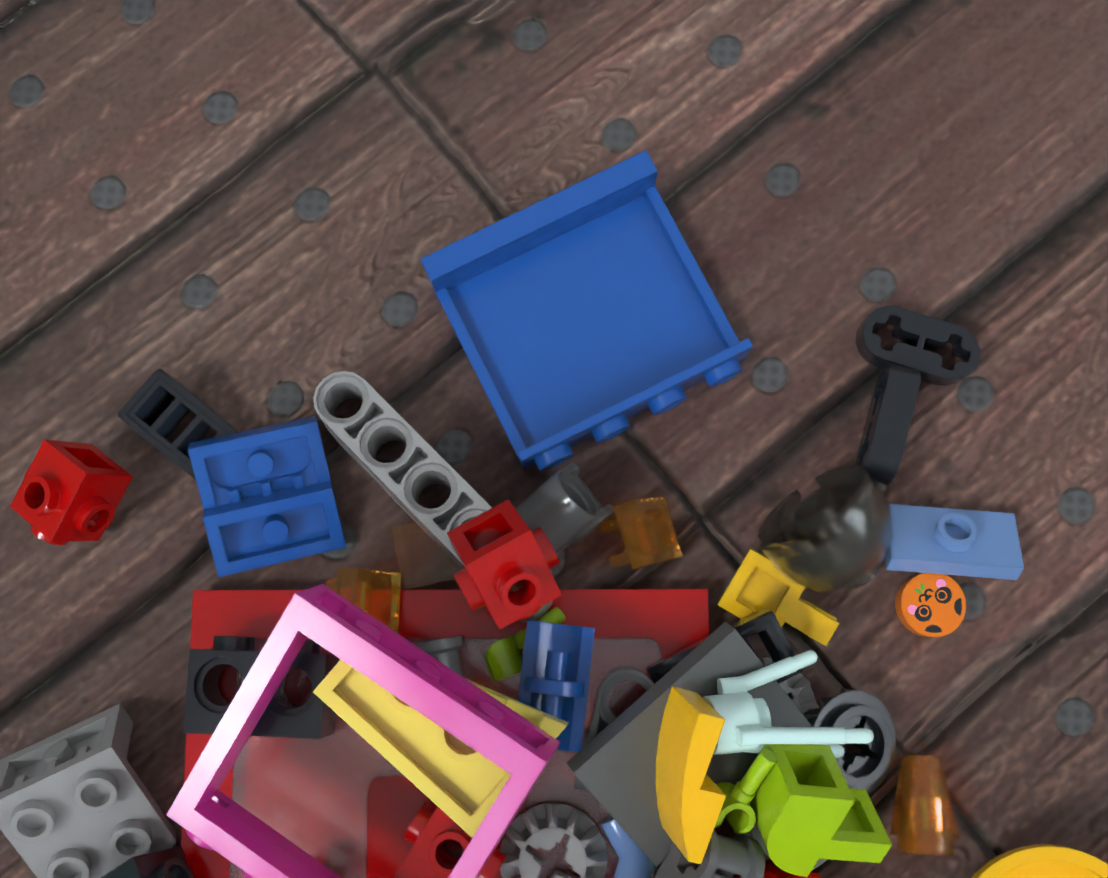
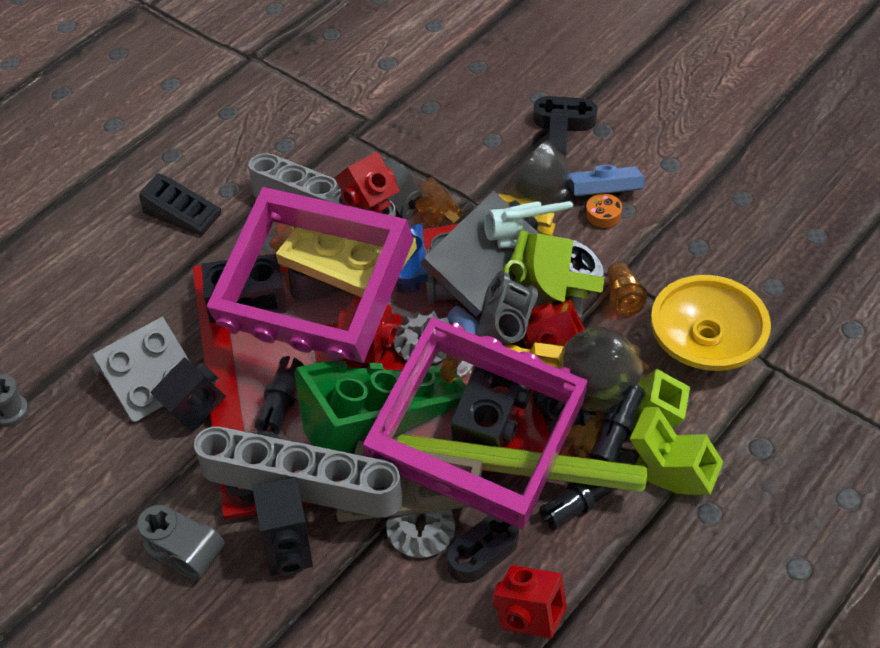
camera: 15 degrees left, 30 degrees down
(70, 492) = (117, 229): red brick -> none
(266, 495) = (219, 217): blue slope -> none
(584, 313) = (384, 113): blue panel -> none
(684, 792) = (483, 251): yellow slope -> none

